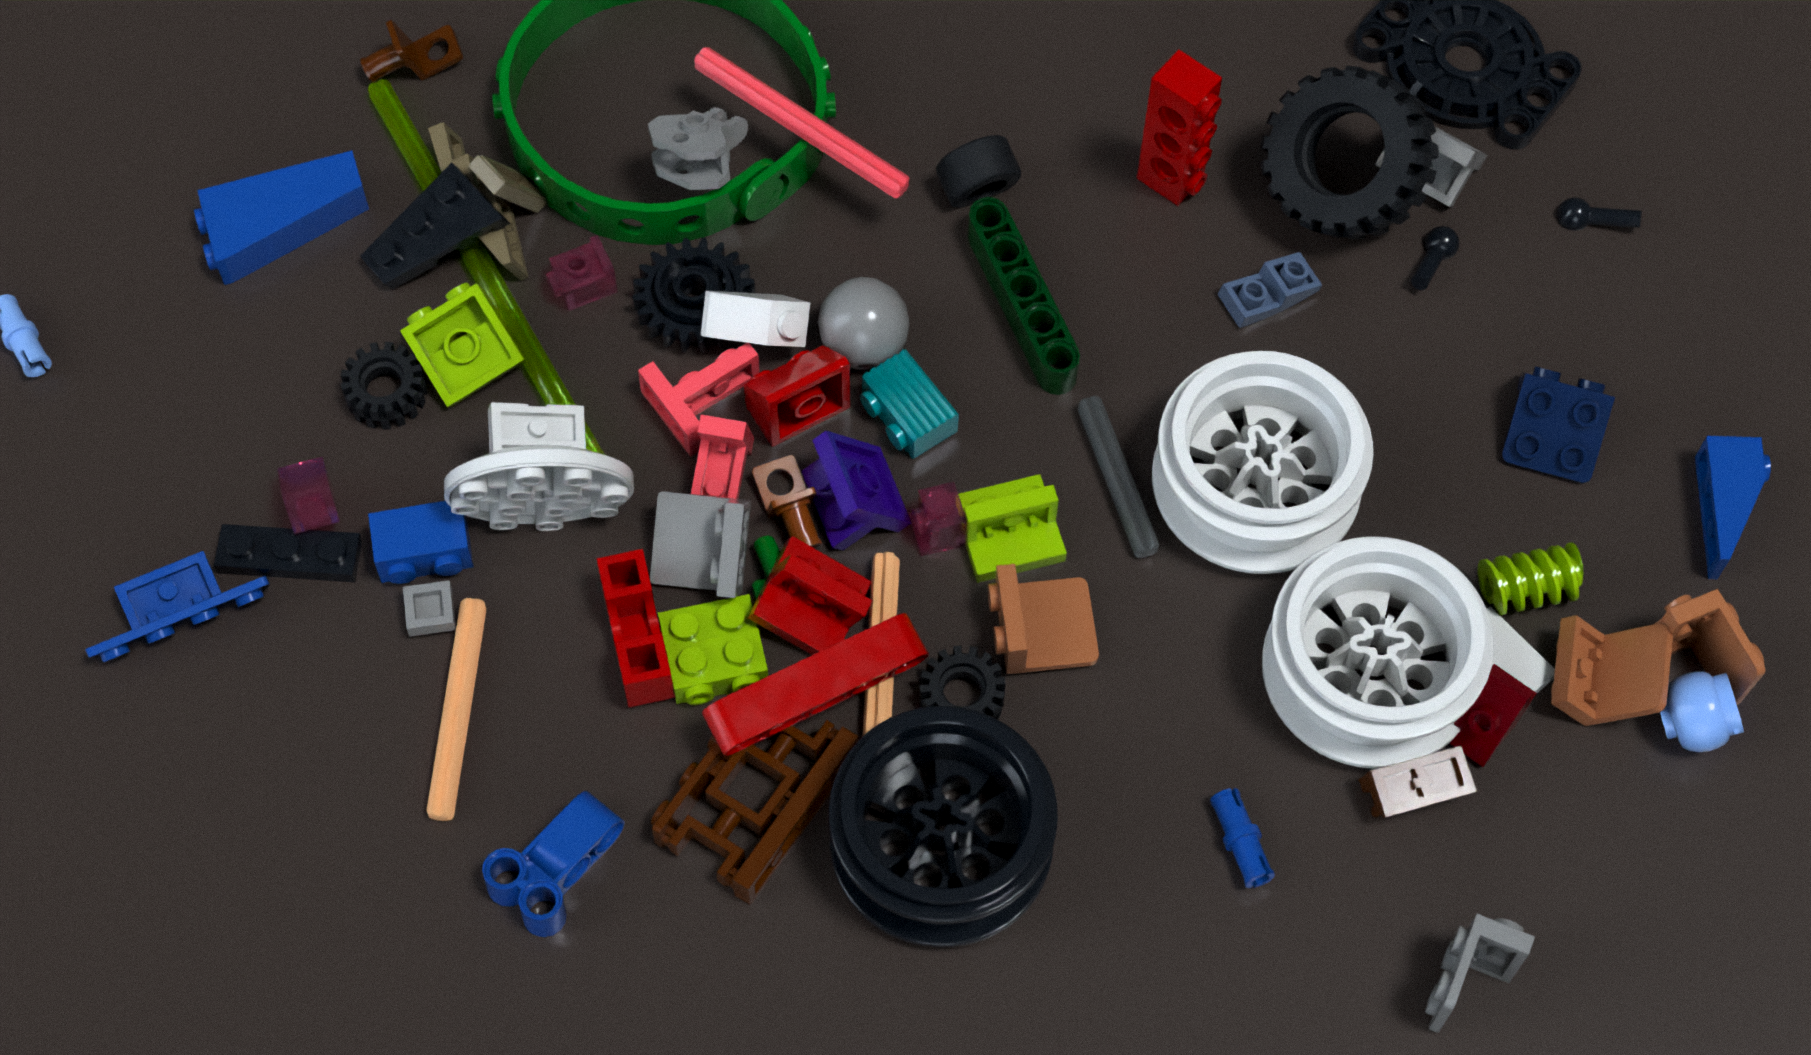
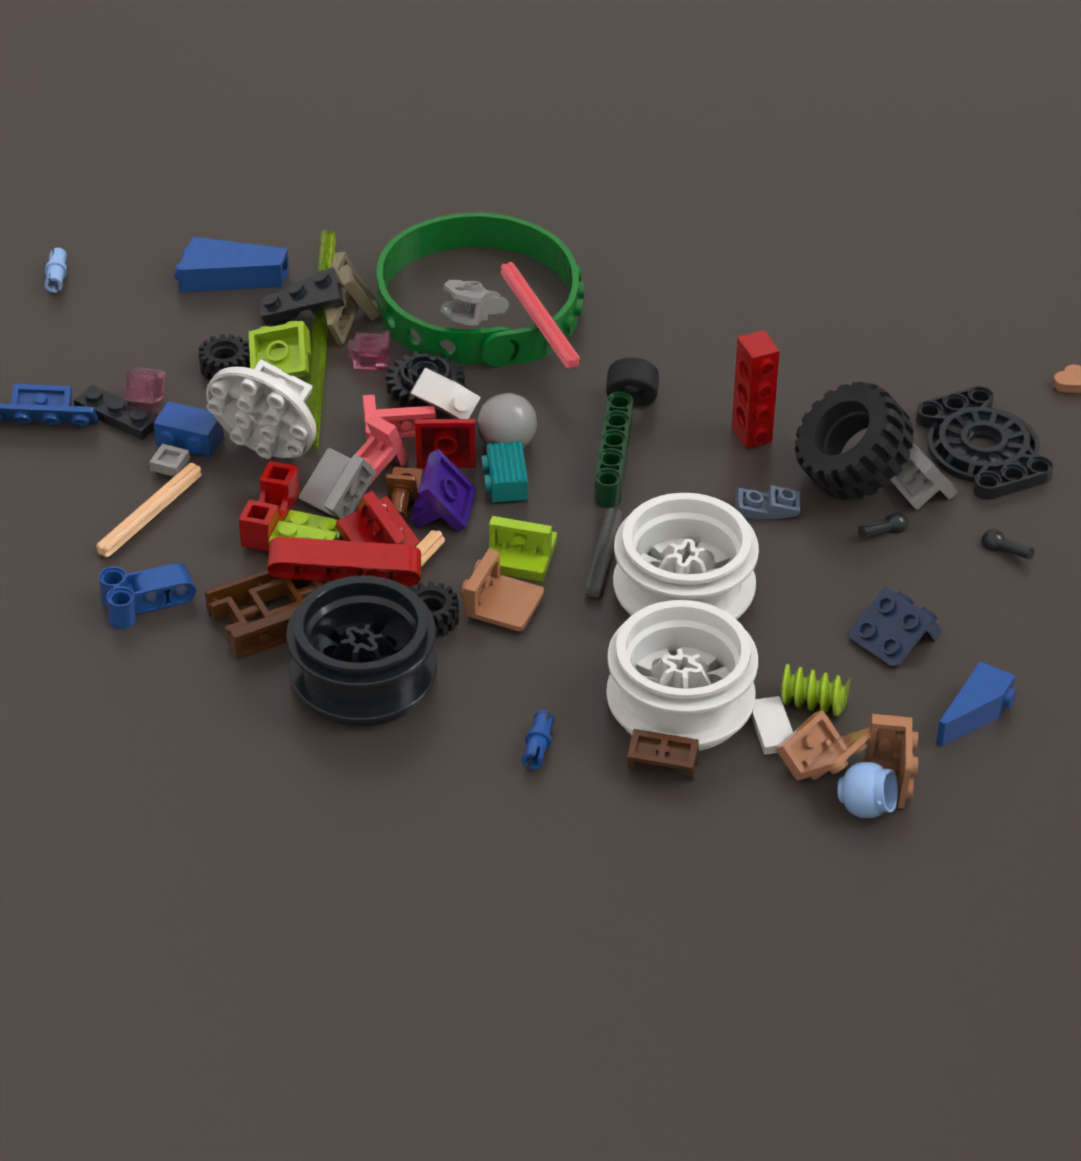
camera: 30 degrees right, 20 degrees down
(411, 54) = (353, 221): reddish brown bracket -> none
(939, 519) = (477, 526): clear pink brick -> none
(1486, 946) = (622, 835): light grey bracket -> none
(1492, 715) = (735, 738): dark red brick -> none

